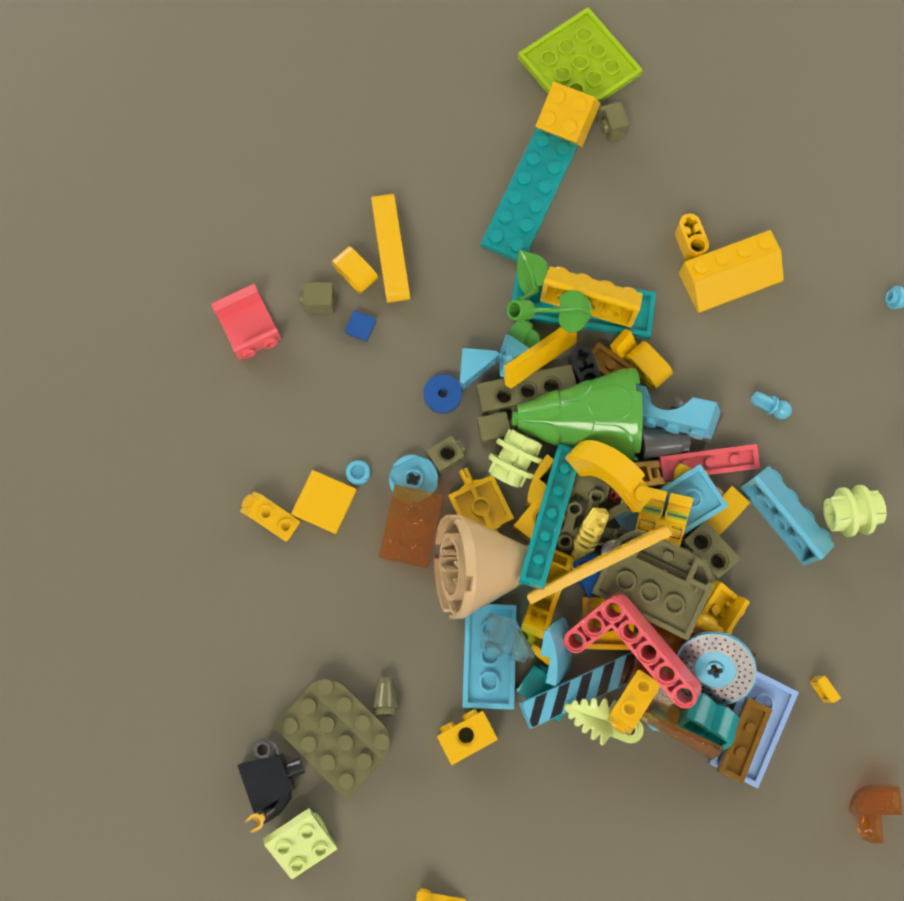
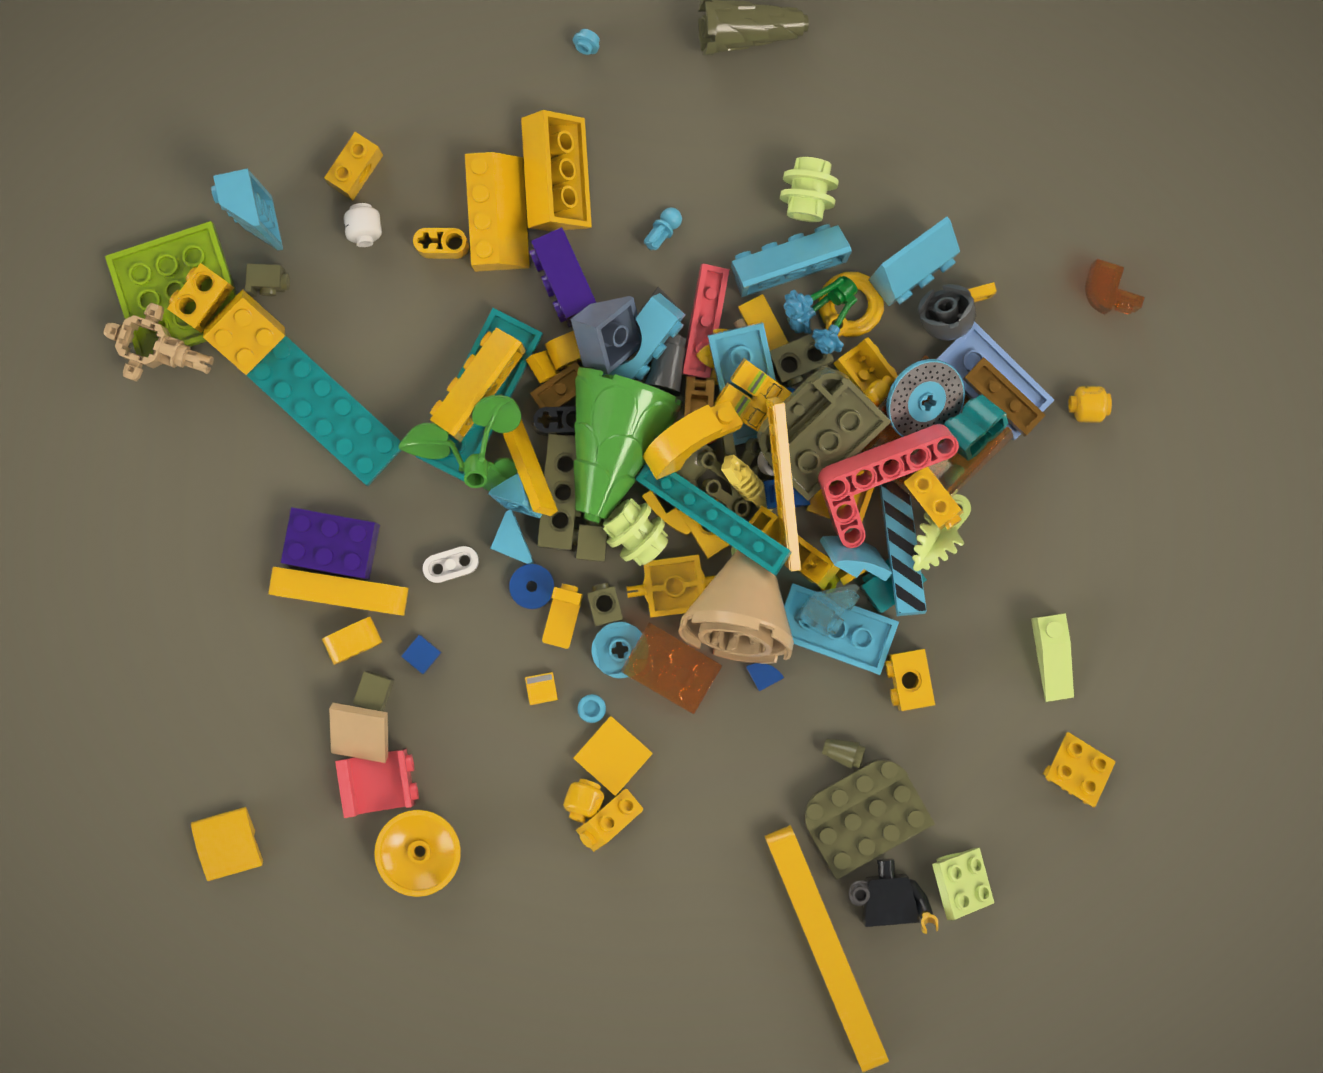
camera: 70 degrees left, 10 degrees up
(167, 227) = (226, 844): none -> yellow slope
(189, 358) = (401, 865): none -> yellow dish
(208, 738) = (826, 948): none -> yellow beam
(279, 488) = (583, 800): none -> yellow head
(282, 295) = (359, 732): none -> tan tile
(362, 427) = (541, 688): none -> yellow tile
(426, 229) = (330, 543): none -> dark purple brick
(426, 424) = (562, 616): none -> yellow bracket
(430, 606) = (763, 675): none -> blue tile
(440, 326) = (451, 564): none -> white plate
(529, 863) = (1054, 656): none -> yellowish green slope
(533, 65) = (166, 350): none -> tan piece
(584, 70) = (206, 301): none -> yellow brick
(669, 80) = (248, 204): none -> medium azure slope
(672, 379) = (607, 333): none -> sand blue slope
(683, 176) = (362, 224): none -> white head
(701, 336) = (562, 274): none -> dark purple brick
(726, 156) = (353, 166): none -> yellow brick
(734, 564) = (800, 312): none -> dark azure plant
(750, 588) = (868, 321): none -> yellow piece
(766, 823) = (1090, 404): none -> yellow head
(783, 306) = (556, 171): none -> yellow slope
(797, 665) = (947, 312): none -> dark grey cylinder
(831, 622) = (916, 263): none -> medium azure slope

